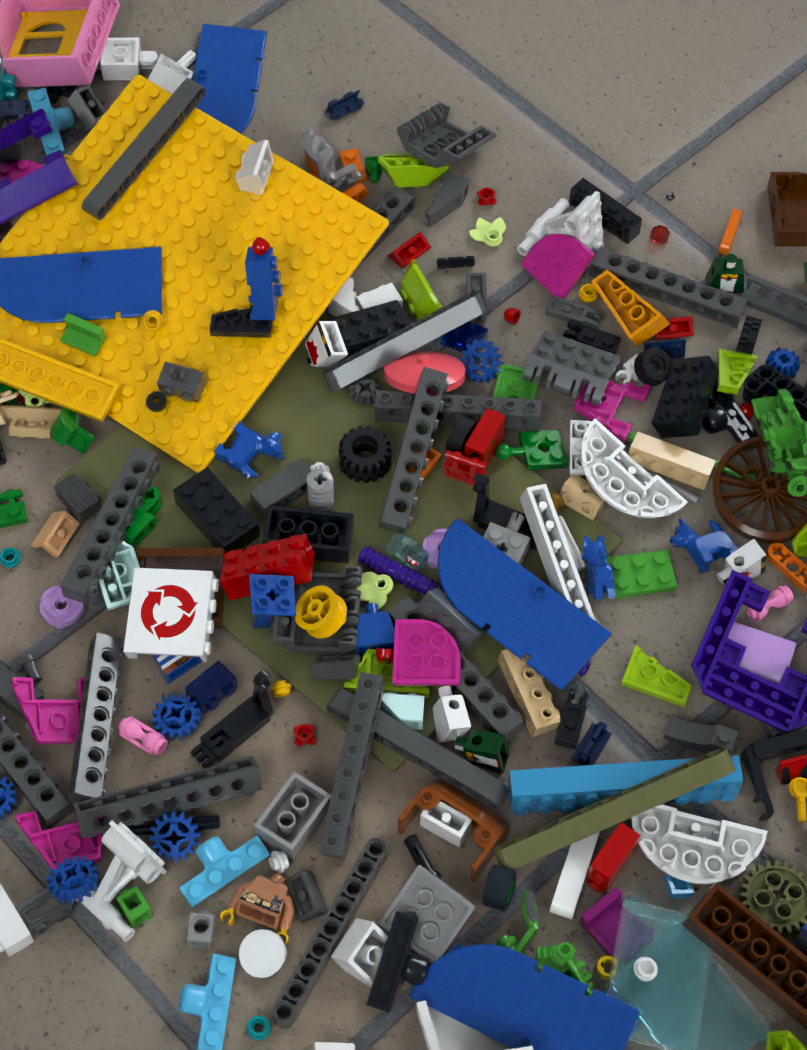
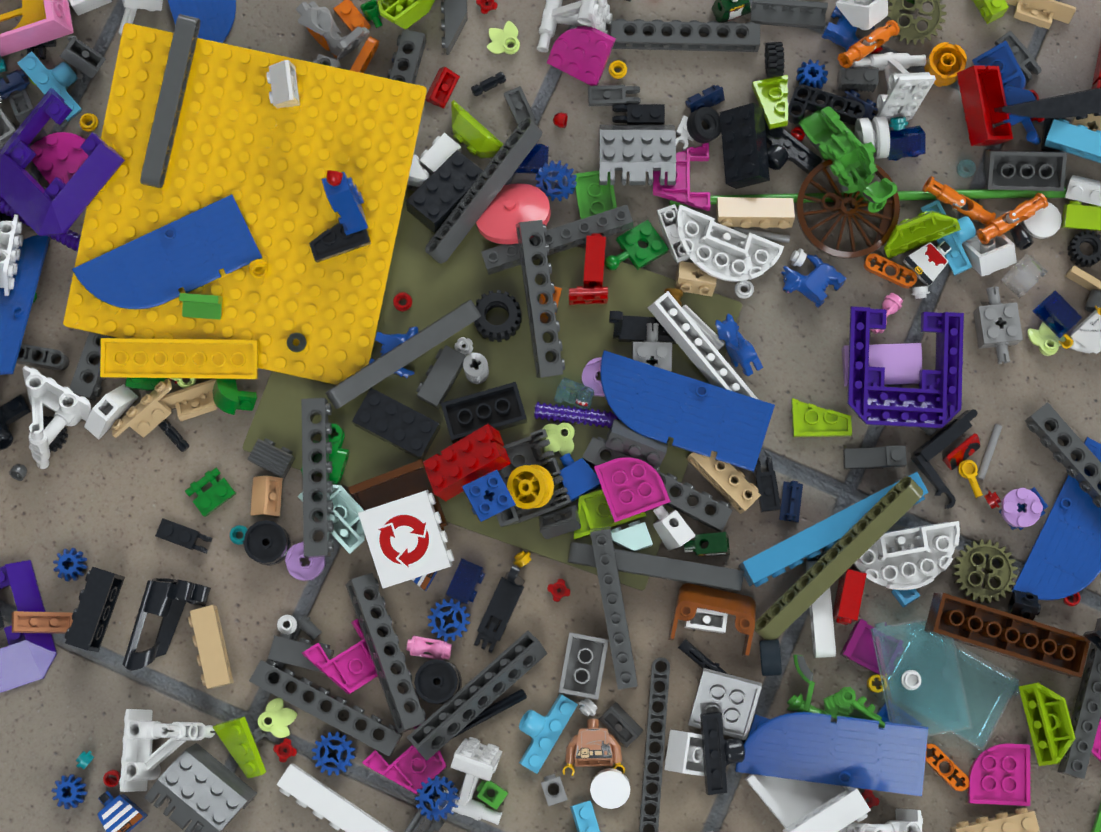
camera: 20 degrees left, 20 degrees up
(16, 661) = (293, 624): none -> white plate
(32, 571) = (259, 534): none -> black wheel
(133, 765) = (430, 672): none -> black wheel
(181, 382) = (311, 316): dark grey brick -> none
(184, 836) = (497, 723): blue gear -> none
(254, 448) = (403, 354): none -> dark grey beam
(278, 406) = (402, 296): none -> red plate
(325, 345) = (418, 225): white torso -> none
(365, 397) = (472, 257): dark grey gear -> none
(384, 653) = (596, 497): red hinge -> none
(460, 434) = (572, 265): black tyre -> none
(631, 311) = (663, 76): light orange wedge -> none
(632, 523) = (750, 289): none -> white plate
(642, 573) = (771, 327): bright green plate -> none
(677, 328) = (703, 75): red slope -> none
(698, 519) = (798, 257): none -> white plate
(747, 560) = (856, 283): white torso -> none

